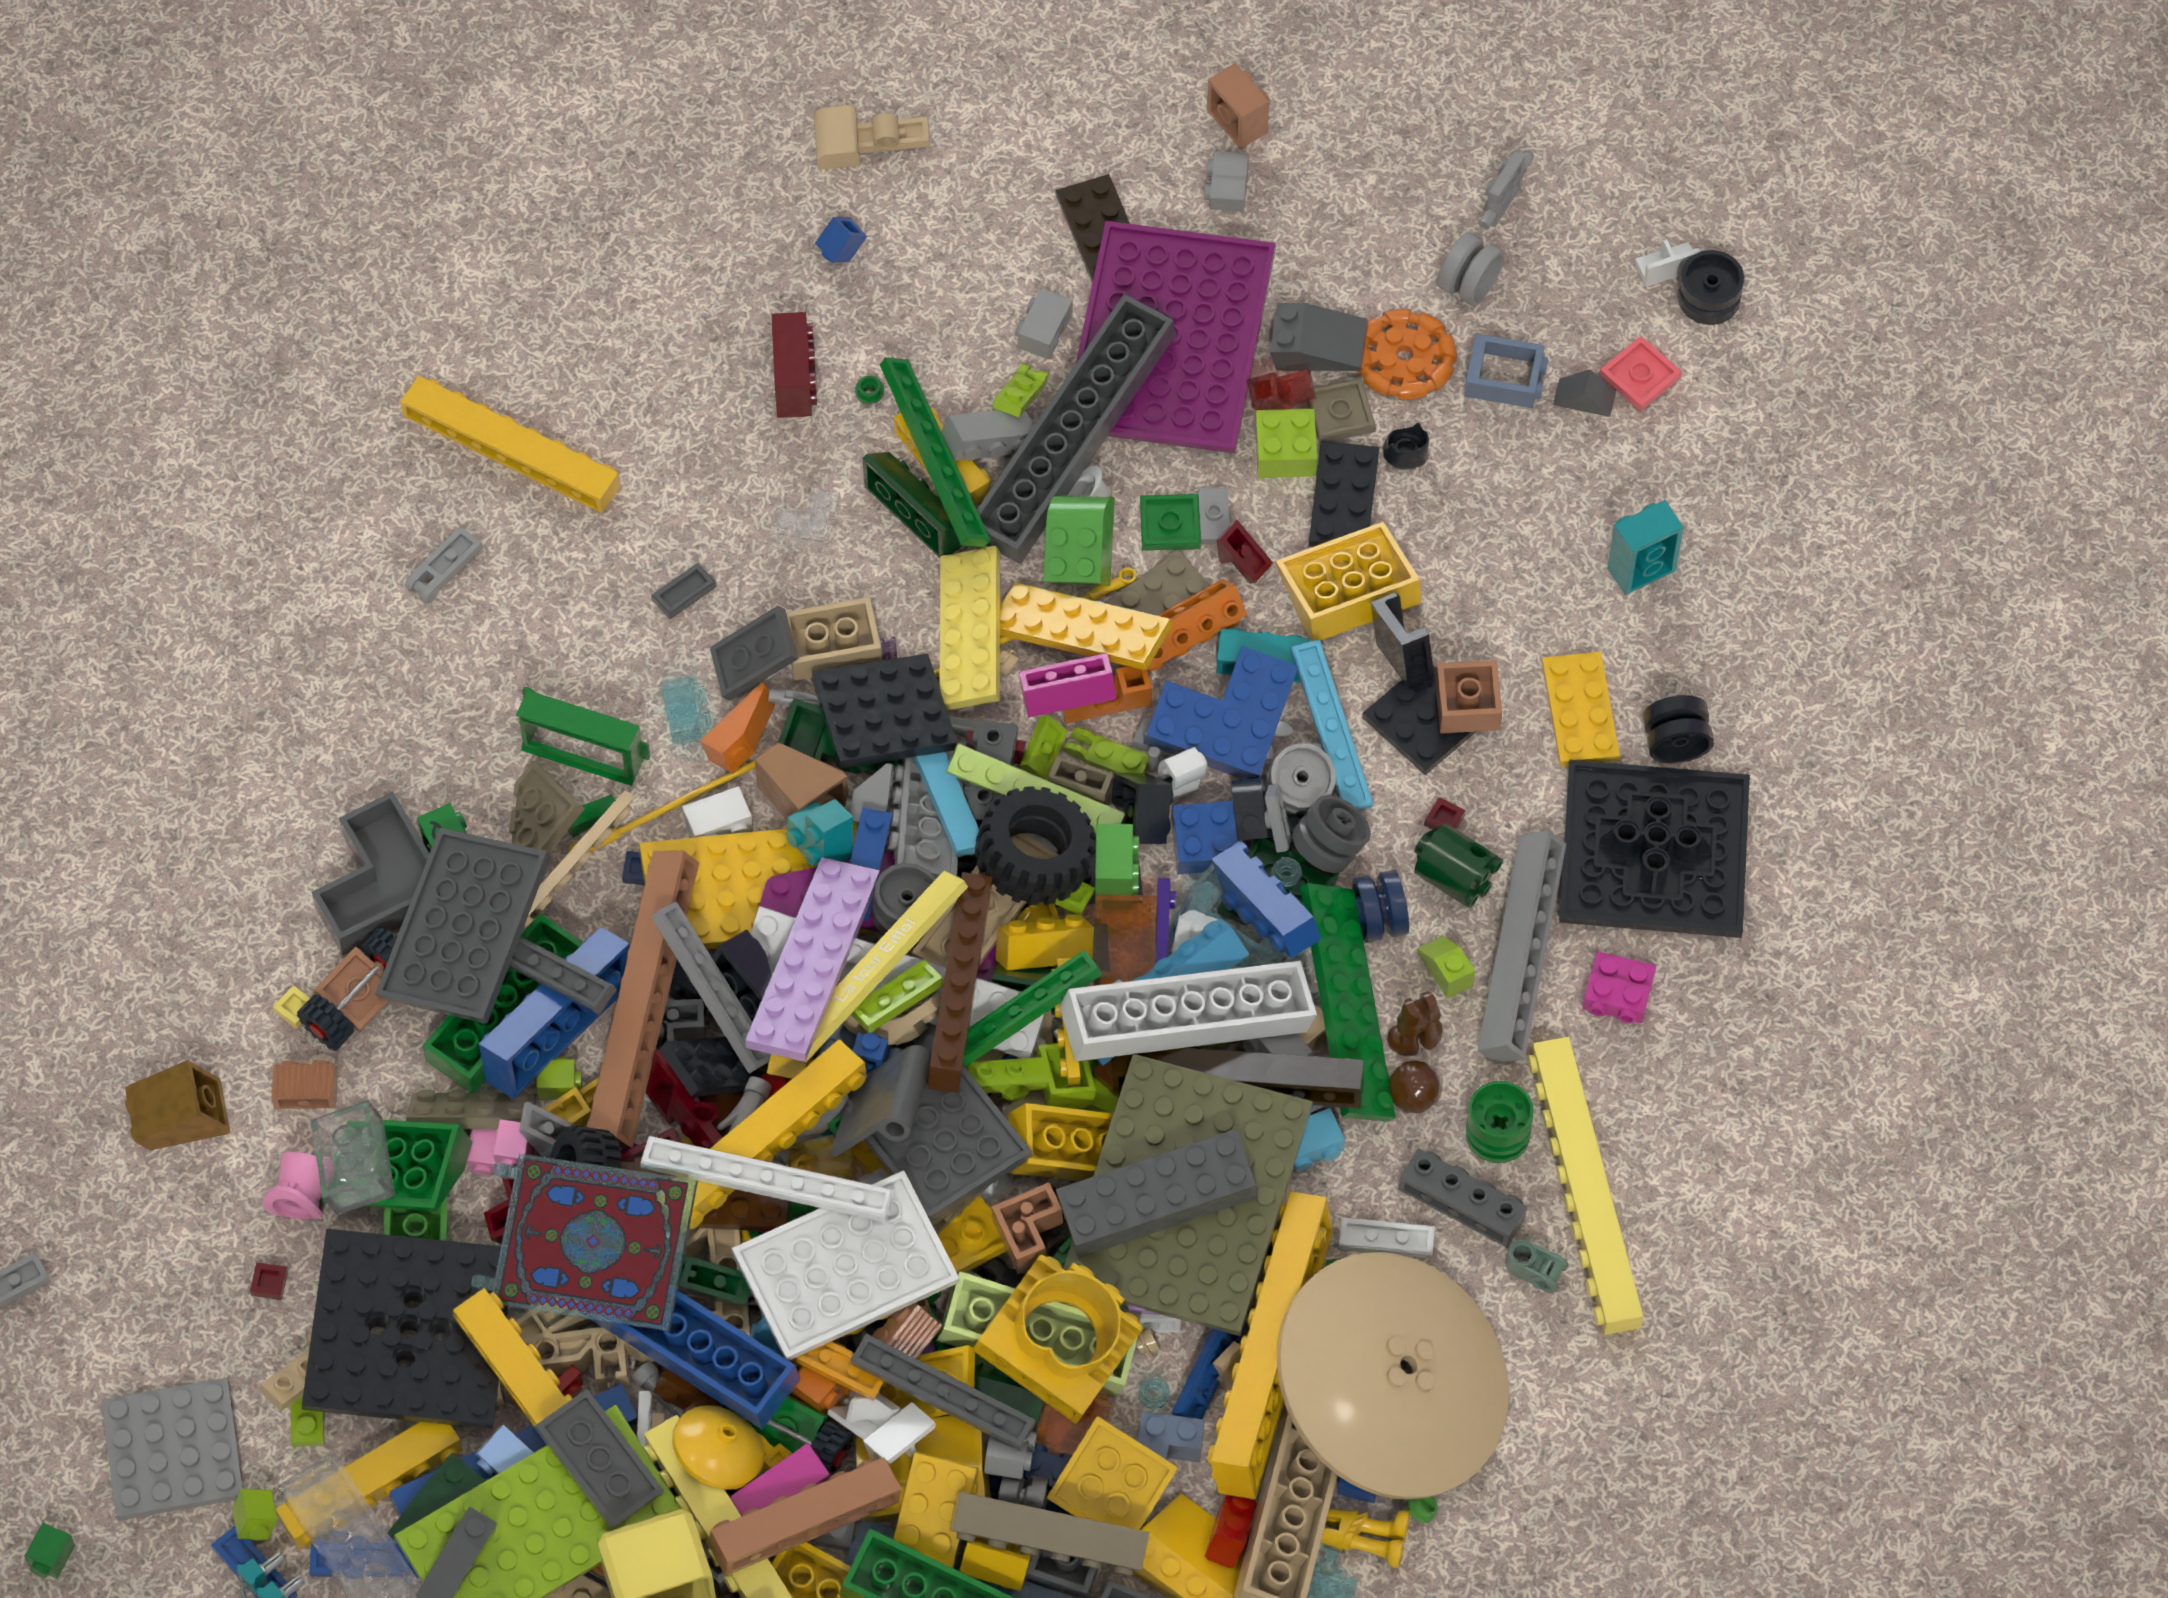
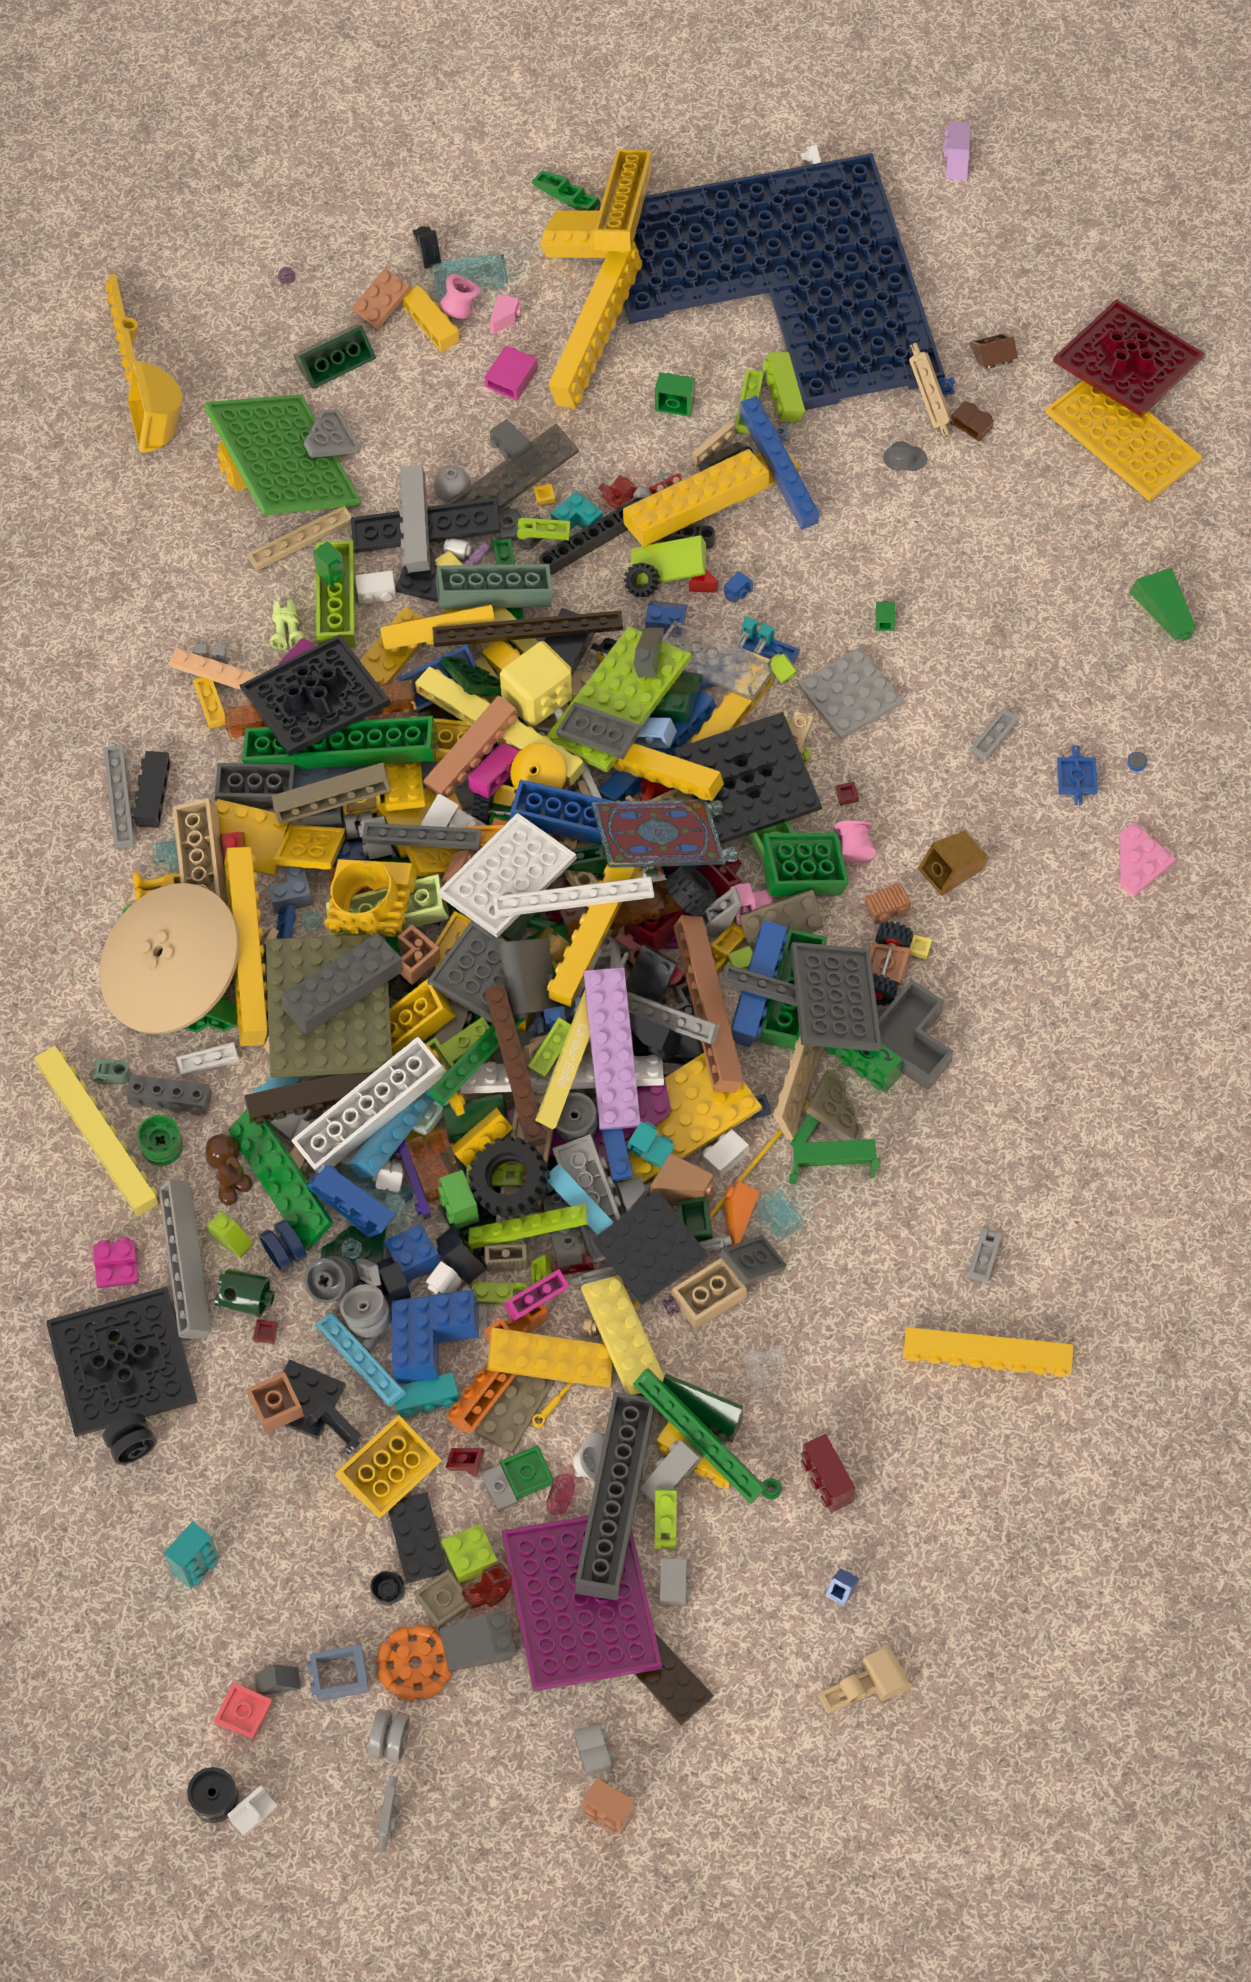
camera: 160 degrees right, 0 degrees up
(352, 1157) = (827, 844): clear brick -> none
(683, 591) = (823, 1299): dark grey tile -> none
(1079, 540) = (576, 1414): bright green brick -> none
(1139, 474) = (561, 1496): none -> clear pink plate
(1580, 708) = (203, 1444): yellow plate -> none

